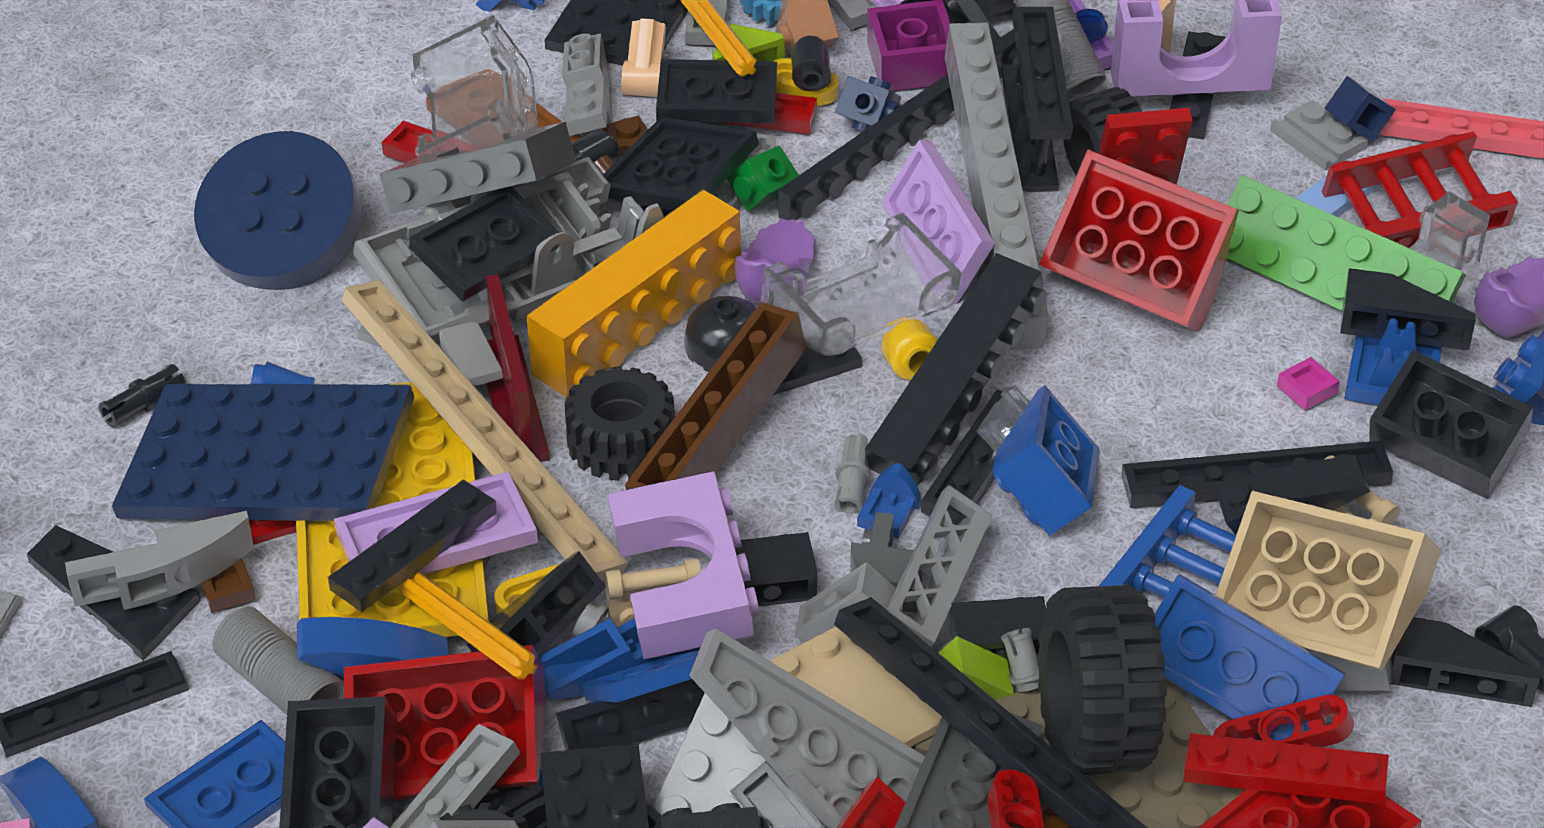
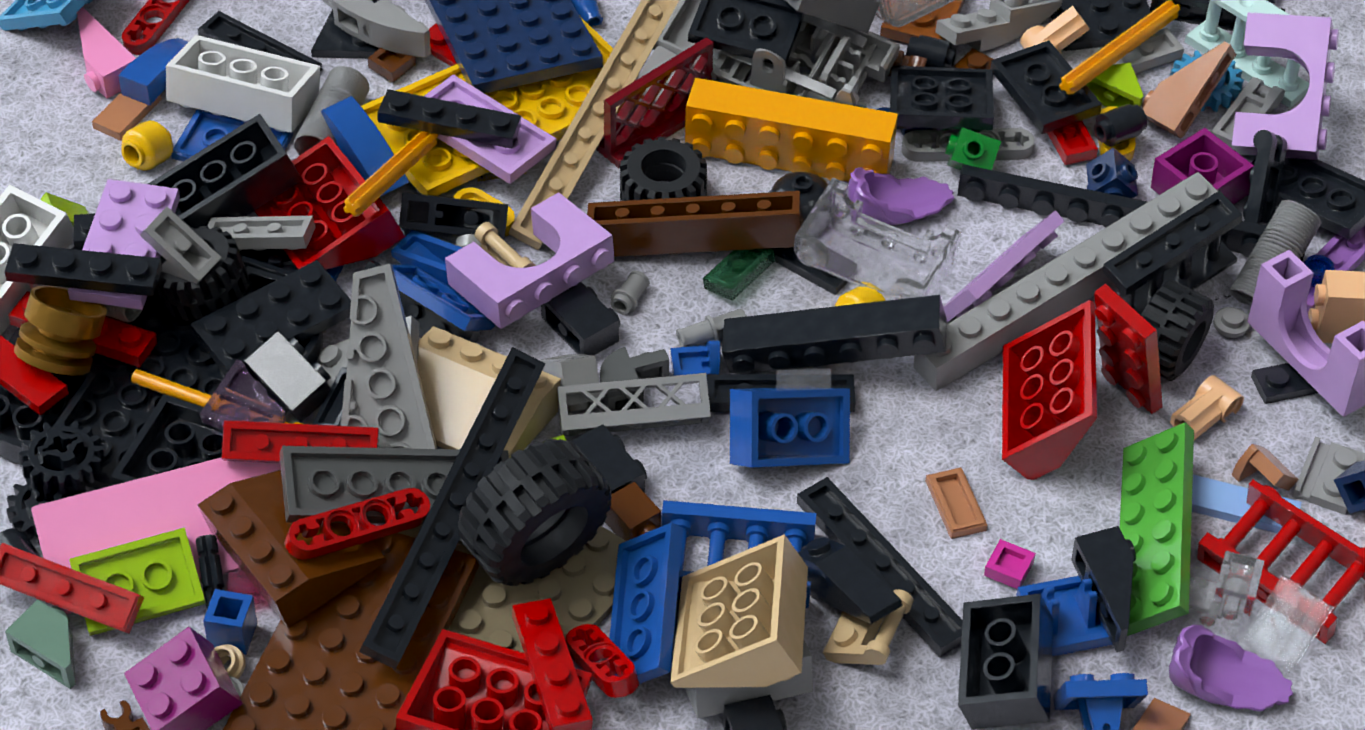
camera: 60 degrees right, 5 degrees up
(163, 727) = (242, 83): none -> white brick
(752, 518) = (629, 293): none -> light grey pin
(789, 422) = (738, 271): none -> clear green plate
(1199, 172) = (1210, 404): none -> light nougat piece
(1201, 391) = (956, 503): none -> nougat tile
(1284, 162) = (1261, 459): none -> nougat tile
(1507, 233) = (1287, 624): none -> clear plate

